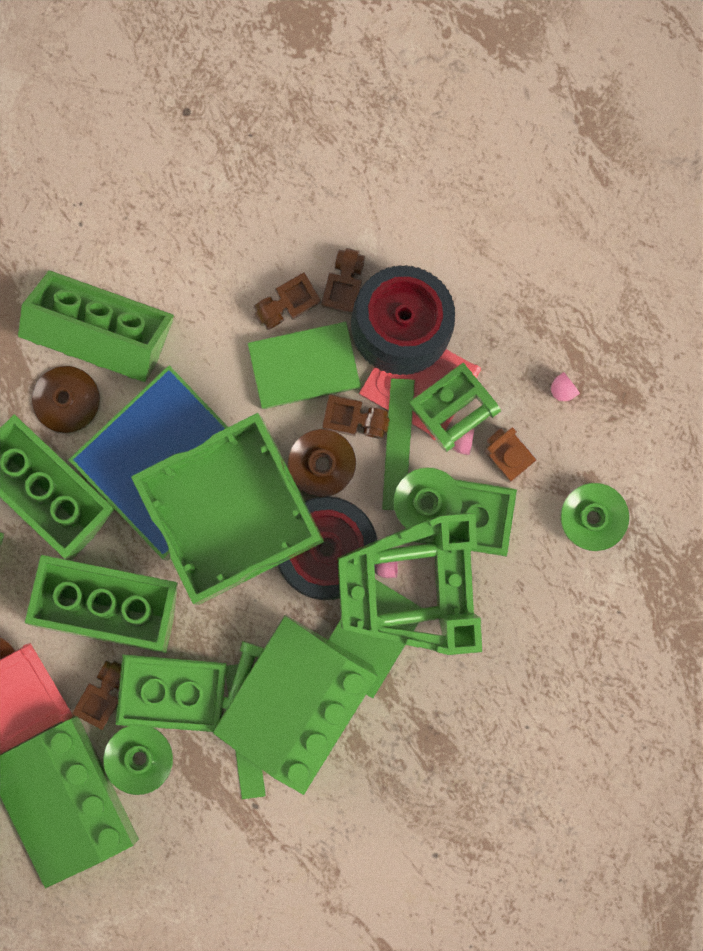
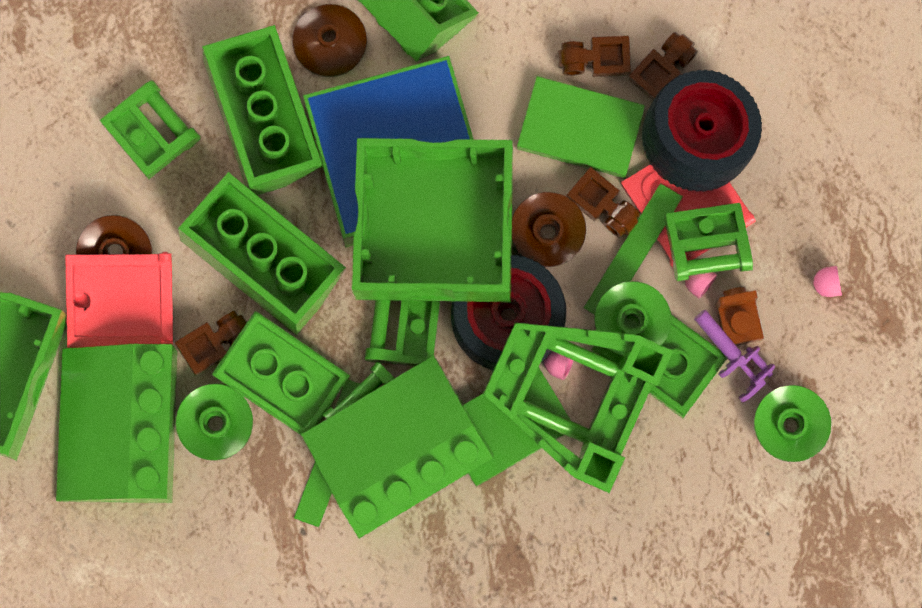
camera: 30 degrees right, 5 degrees down
(260, 603) = (415, 333): none -> bright green plate
(523, 488) = (734, 355): none -> medium lavender piece

